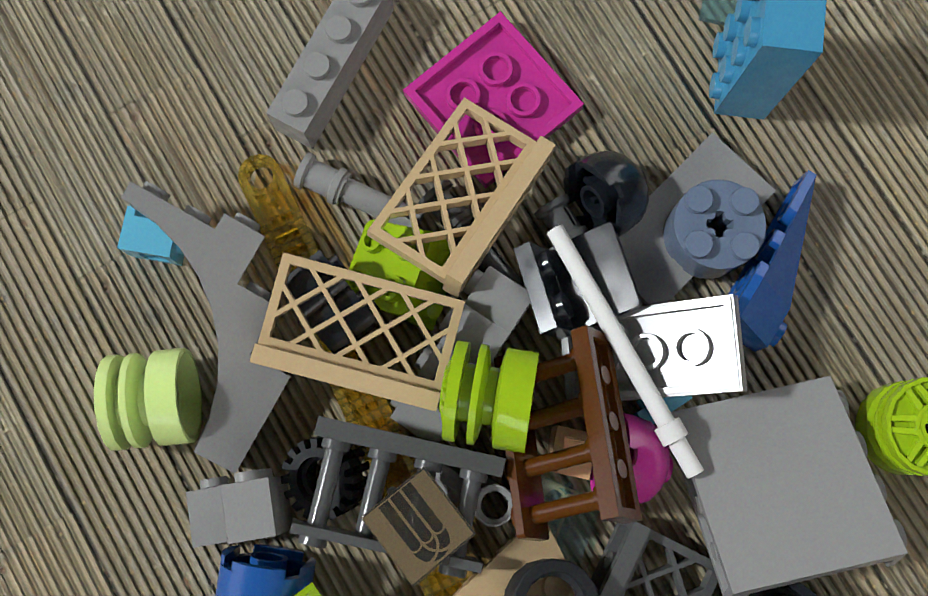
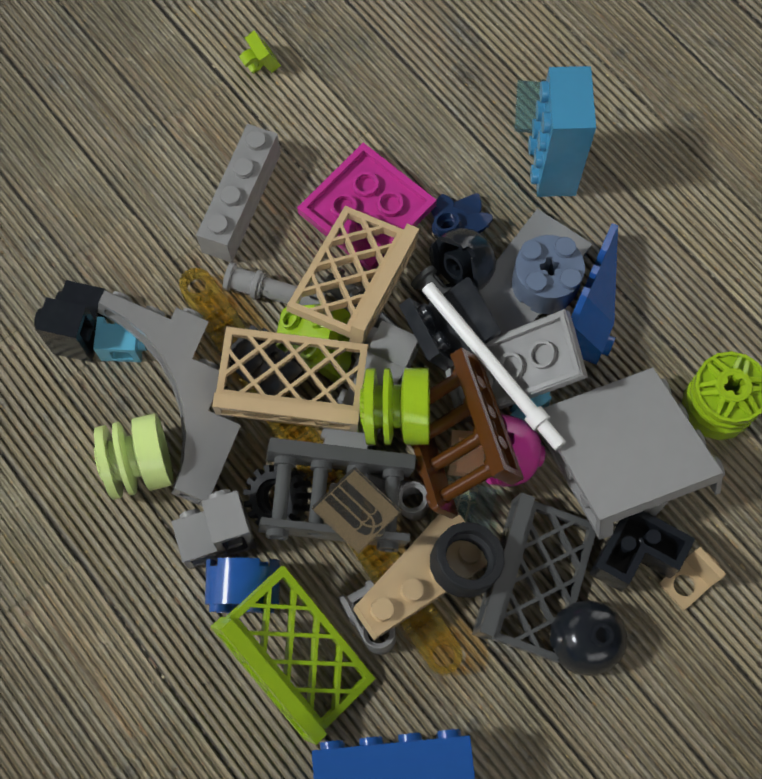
camera: 10 degrees left, 10 degrees down
(94, 207) = (70, 321): none -> black brick
(611, 126) = (459, 214): none -> dark blue plate

